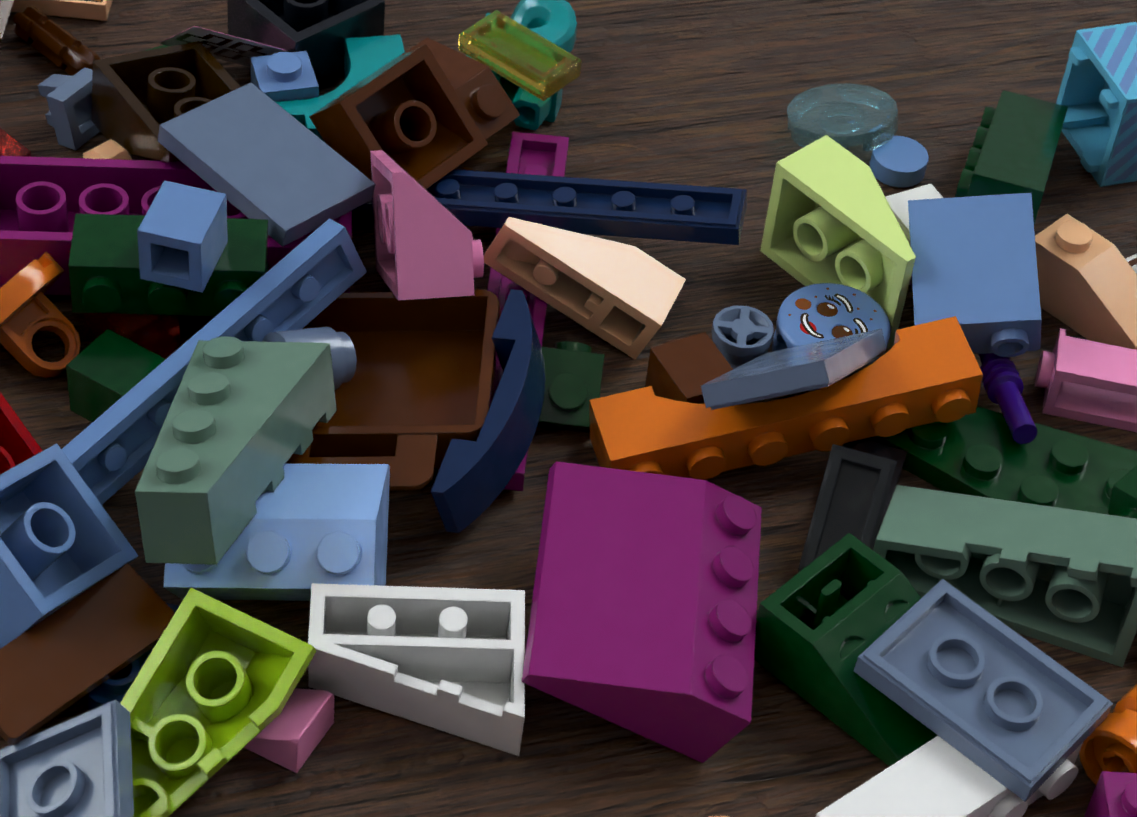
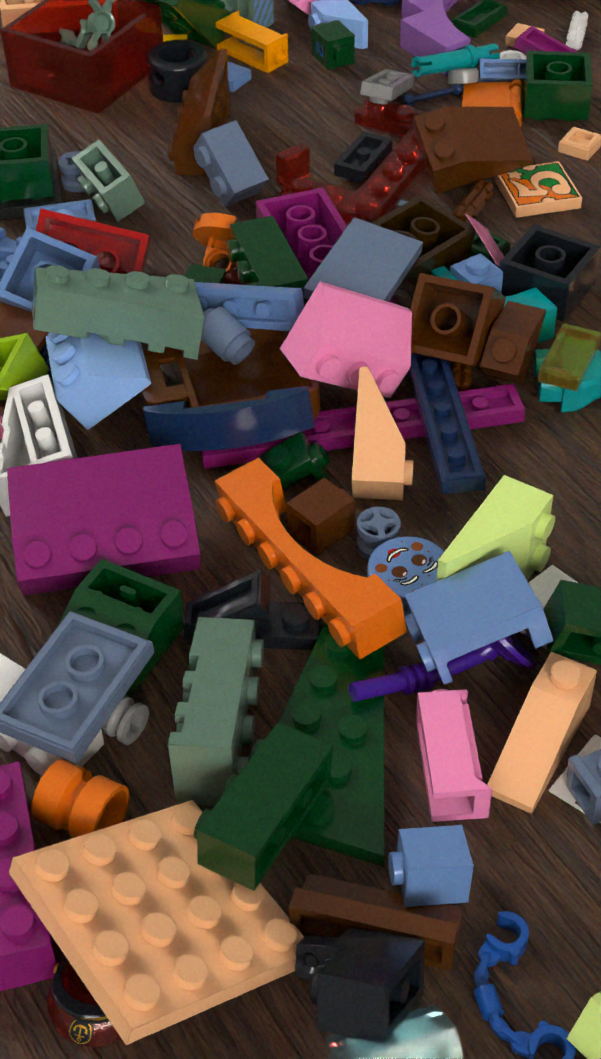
camera: 80 degrees right, 0 degrees up
(182, 236) = (257, 242): medium blue brick -> none
(794, 370) = (310, 531): sand blue tile -> none

